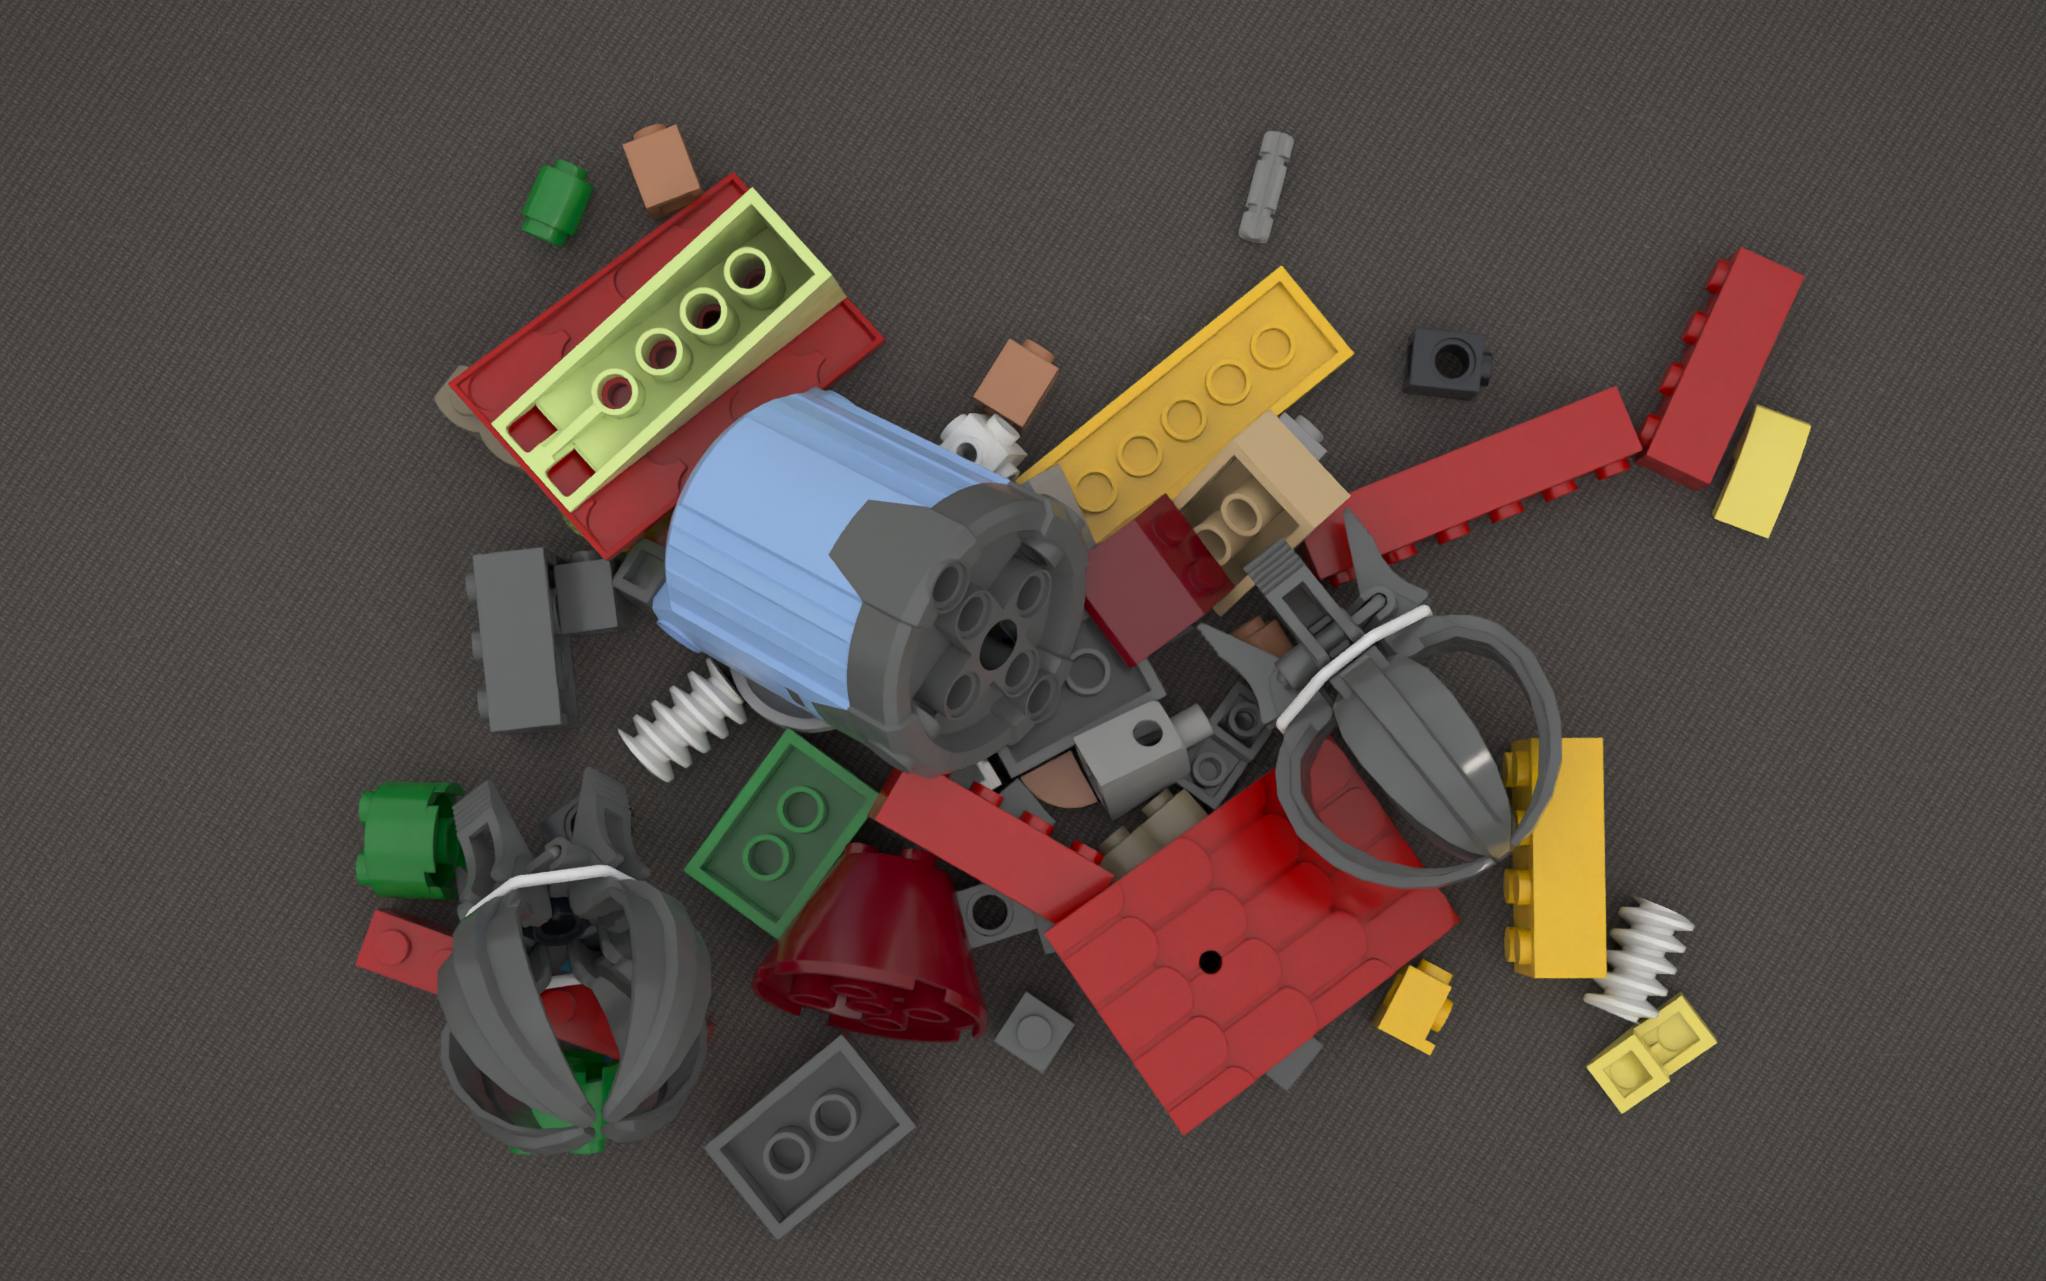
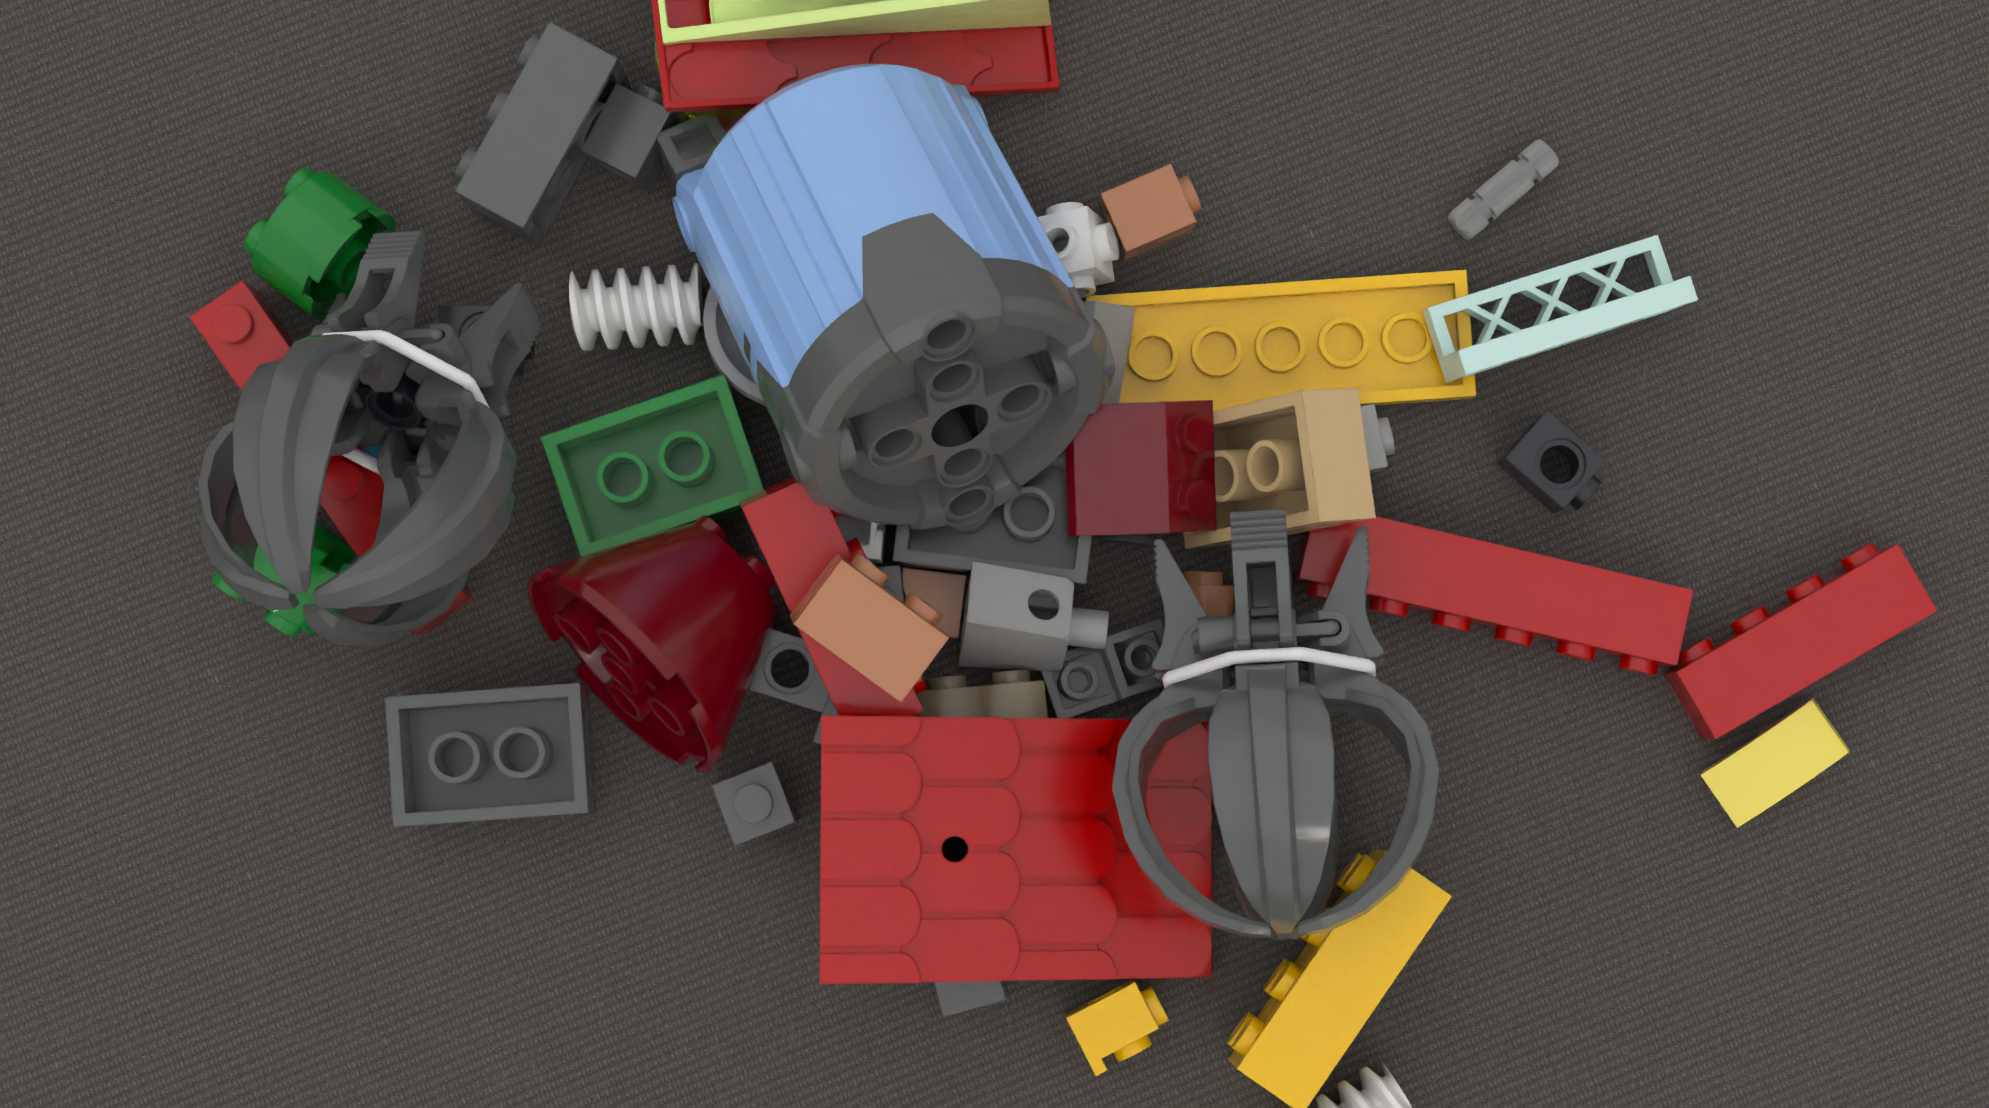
camera: 30 degrees right, 0 degrees up
(1032, 840) = (870, 625): none -> nougat brick
(1389, 255) = (1564, 330): none -> light aqua fence

